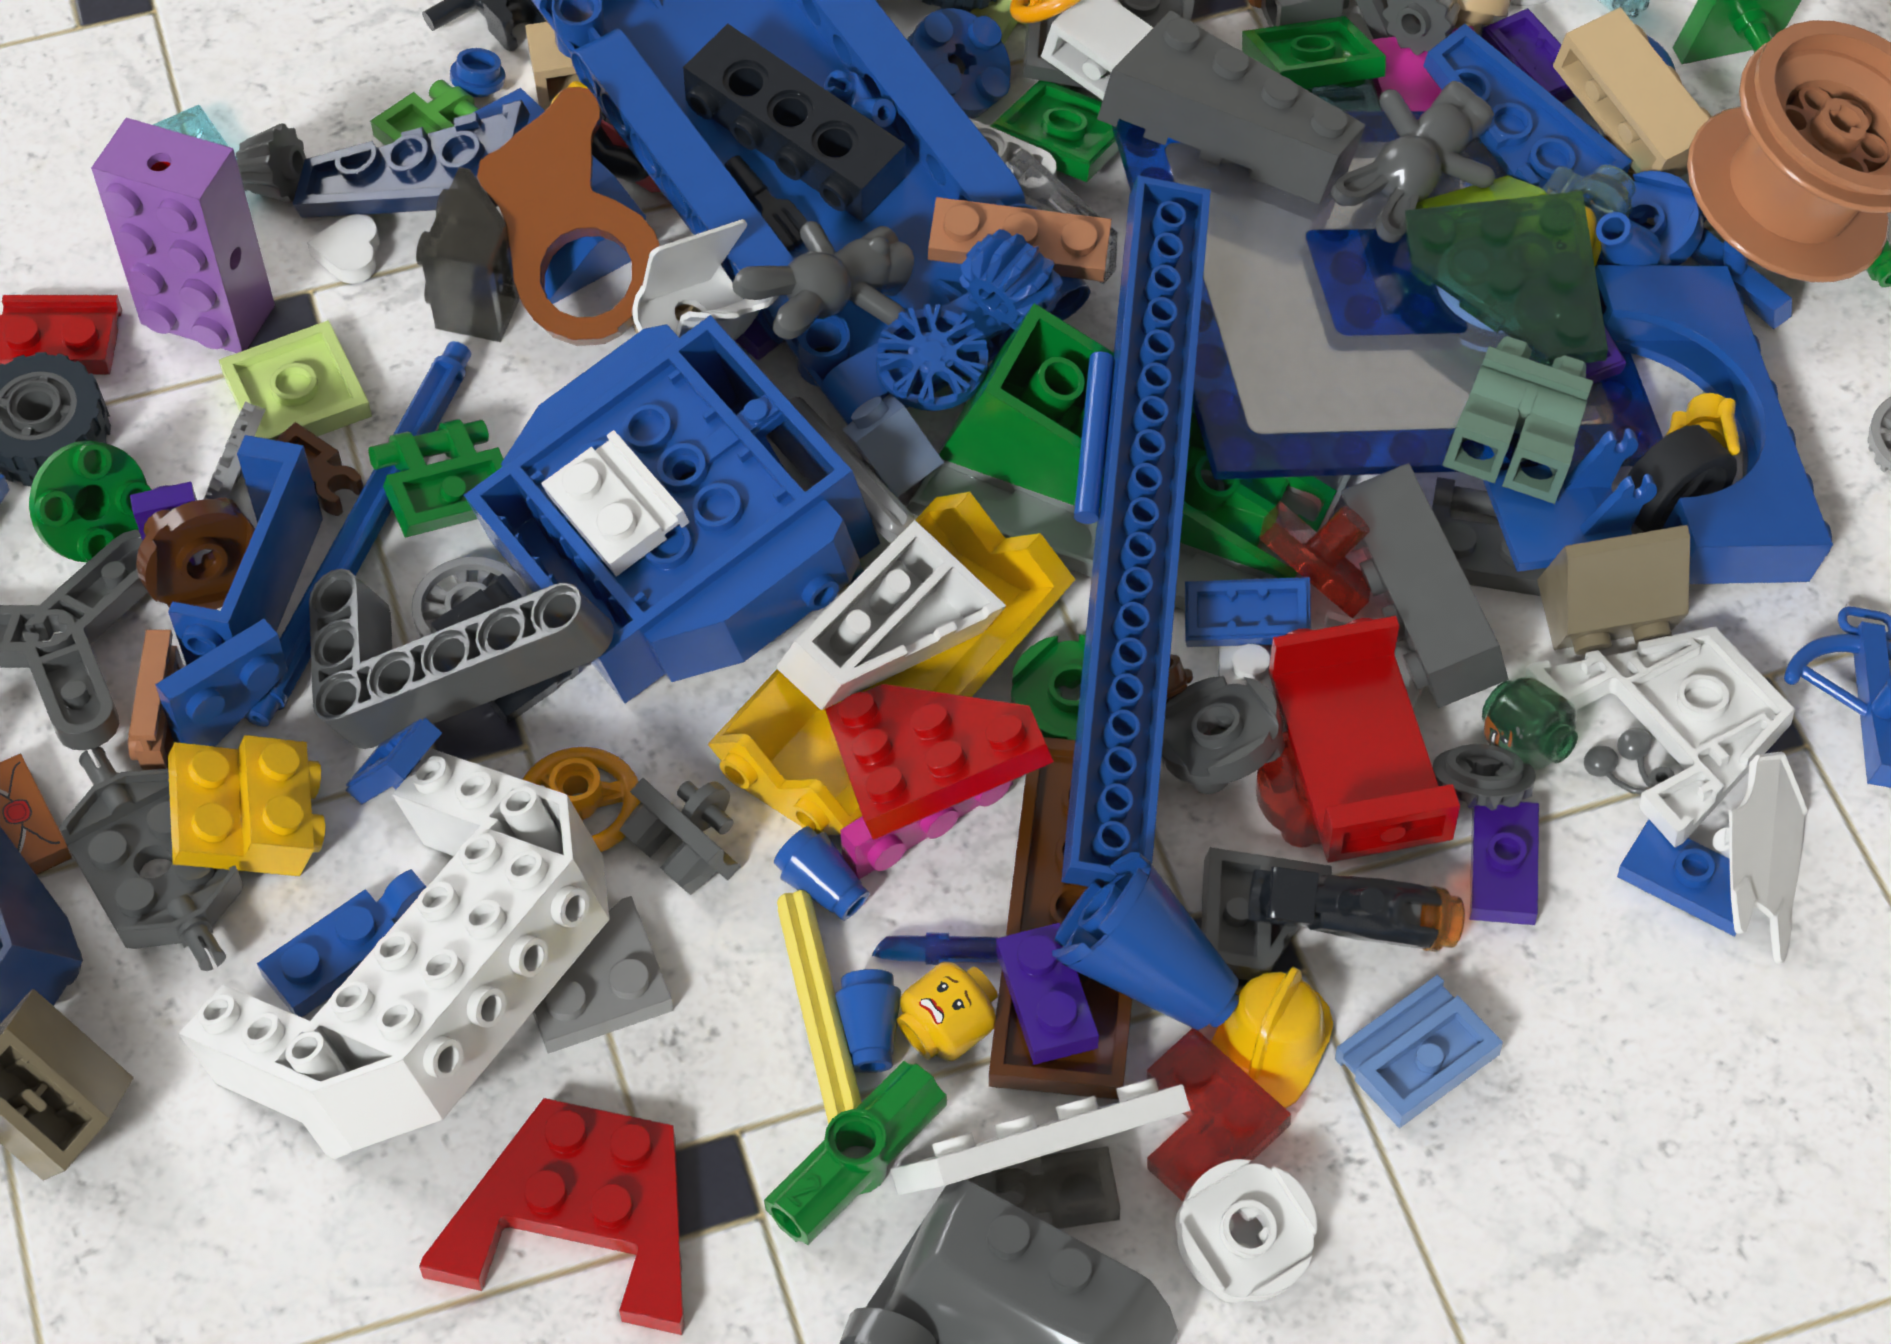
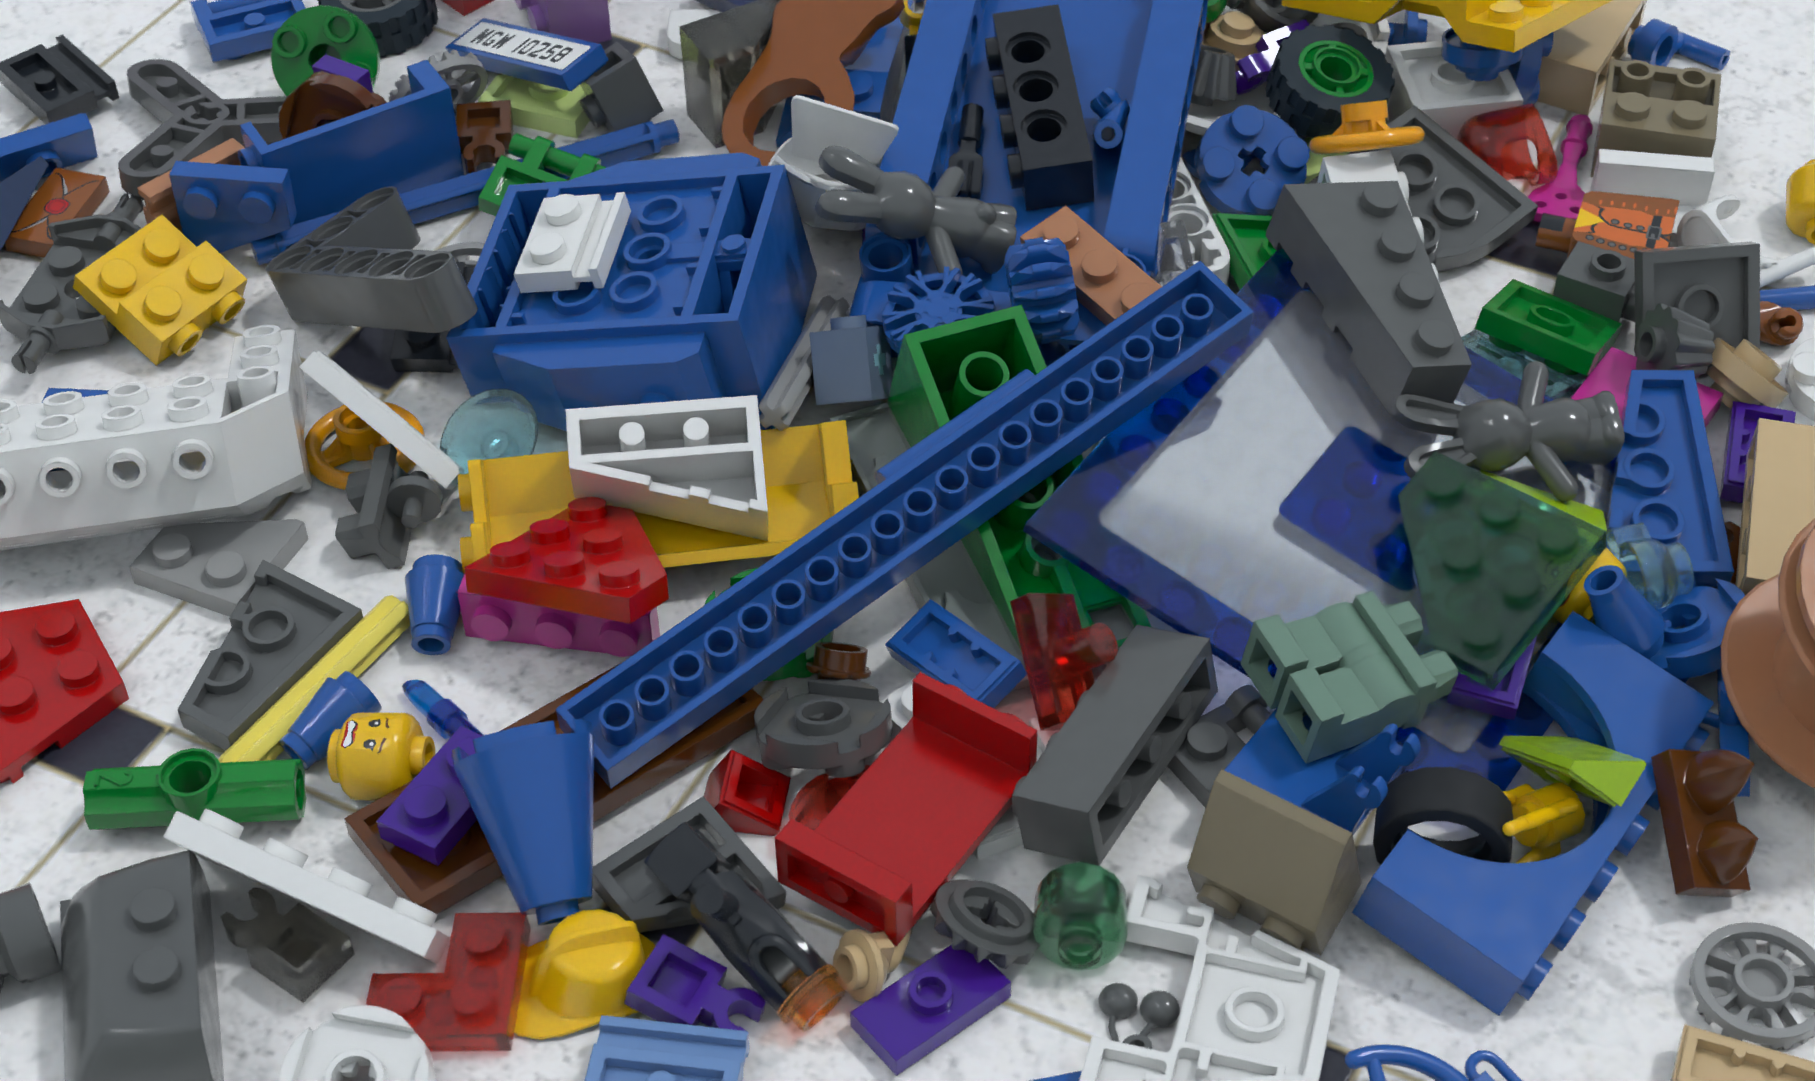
camera: 45 degrees right, 10 degrees down
(265, 369) = (531, 53): none -> tile
(386, 348) = (619, 92): none -> dark grey brick
(392, 761) = (269, 309): blue plate -> none
(620, 763) = (382, 419): none -> white tile
(679, 714) = (490, 427): none -> clear light blue piece
(750, 1013) = (267, 650): none -> dark grey wing
(1207, 823) = (747, 794): none -> red slope
(1359, 988) = (688, 989): none -> dark purple plate
(1445, 866) = (865, 961): none -> tan plate
(1703, 372) = (1578, 764): none -> lime slope
(1787, 339) = (1700, 820): none -> reddish brown tile

